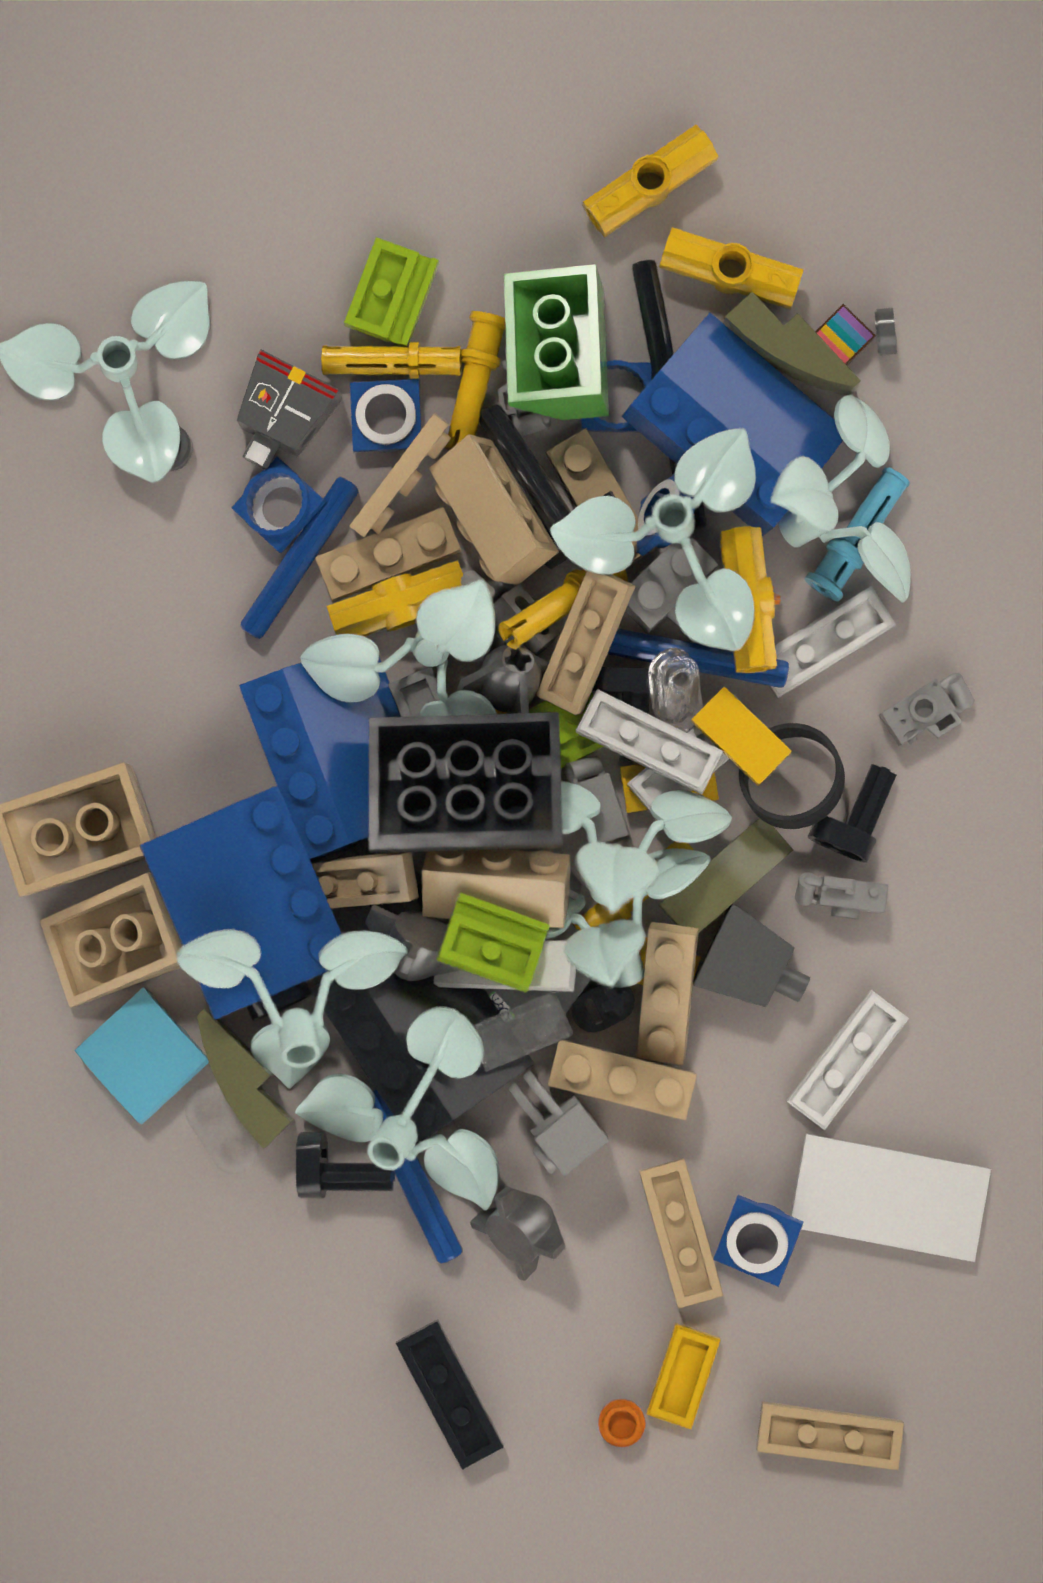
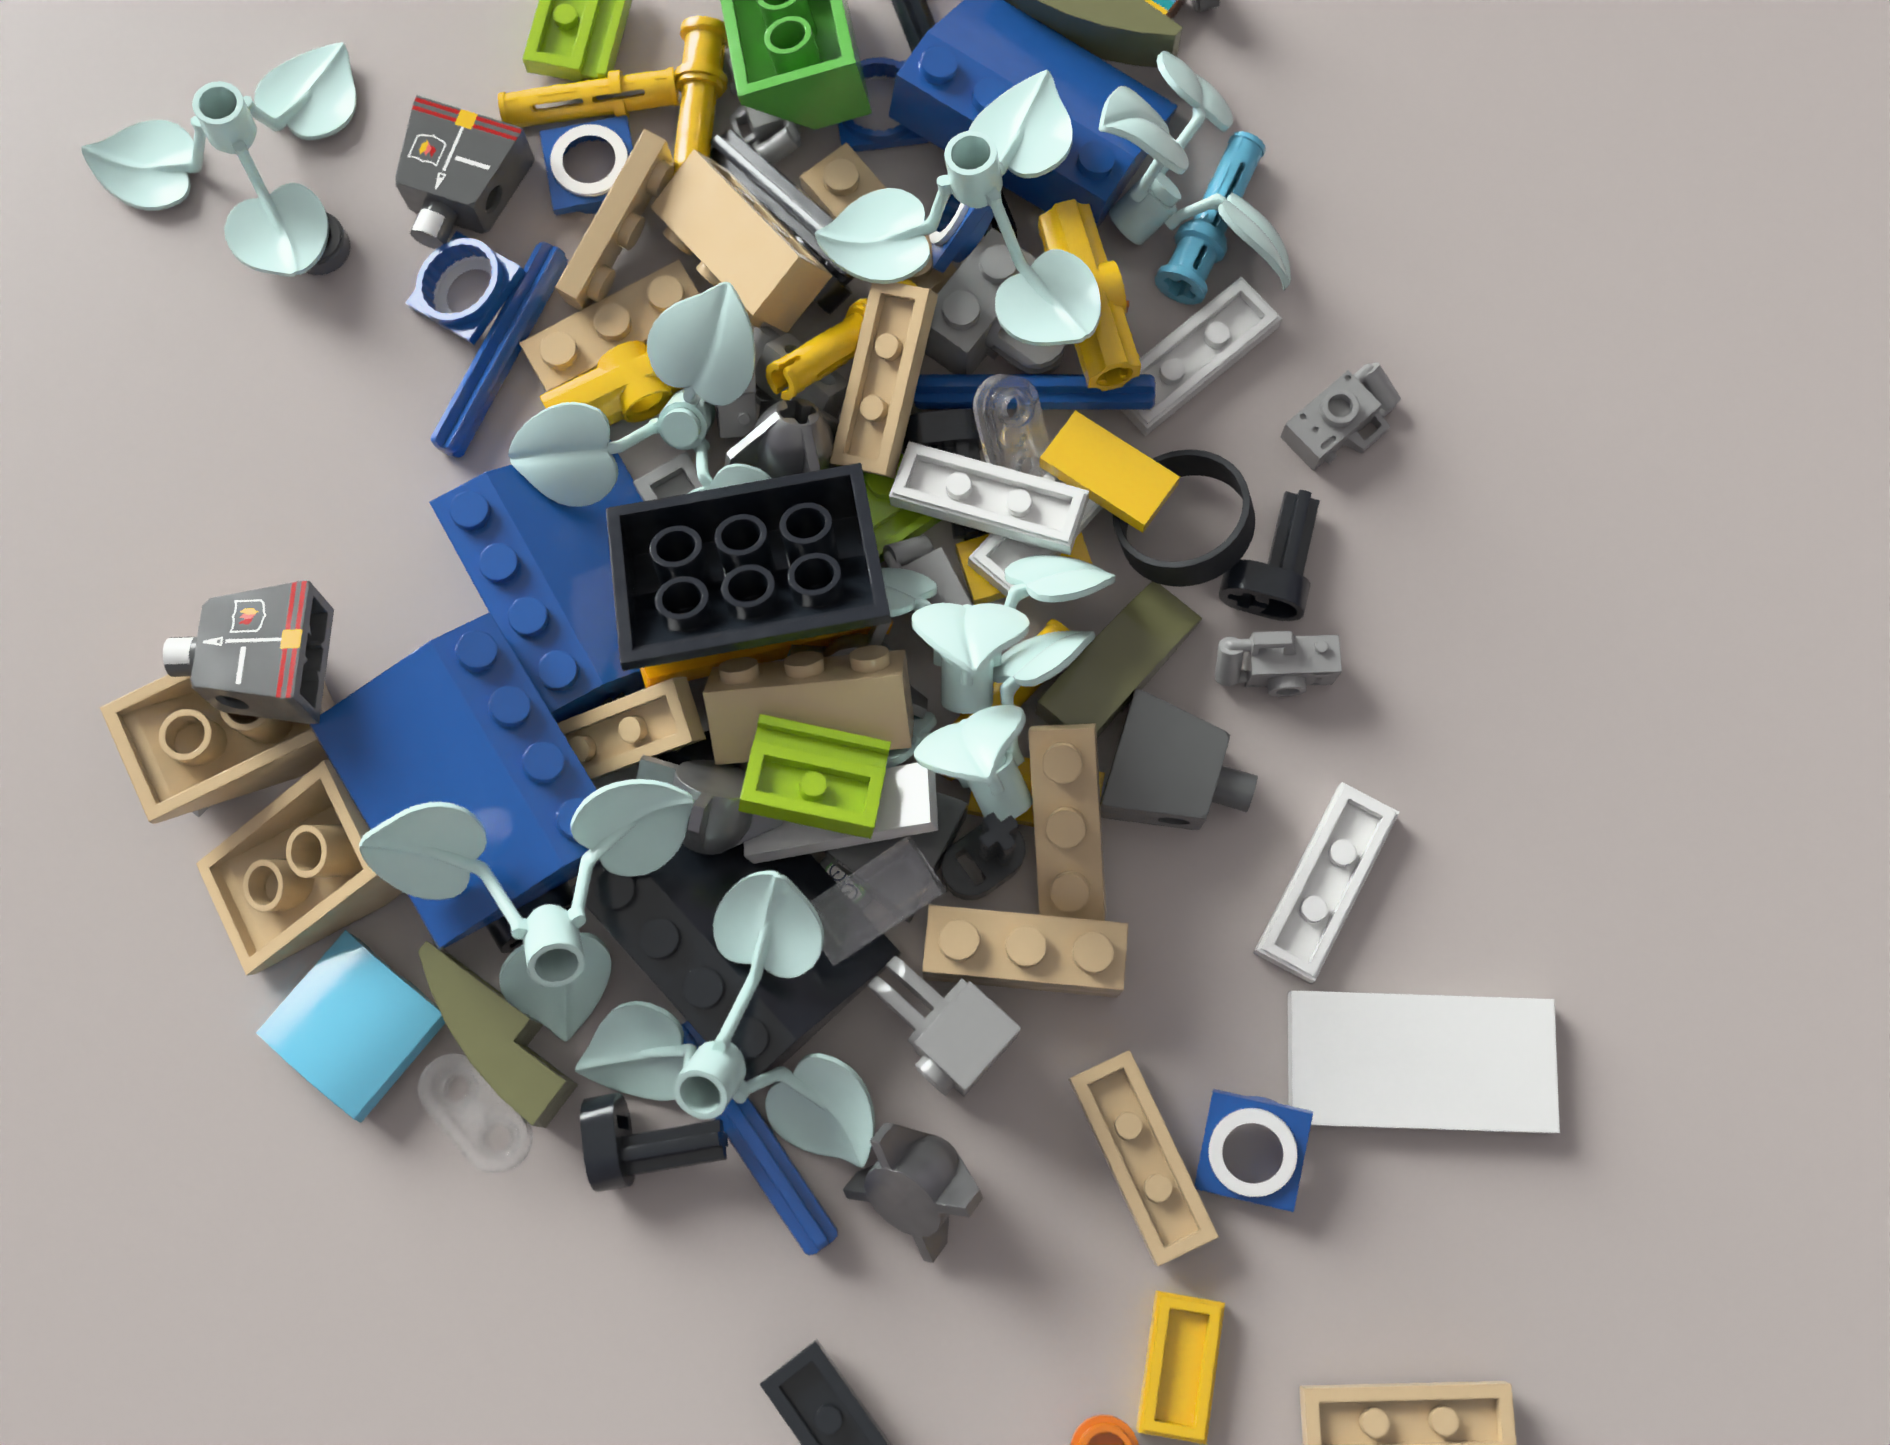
camera: 15 degrees left, 10 degrees down
(111, 792) = (259, 652): none -> torso

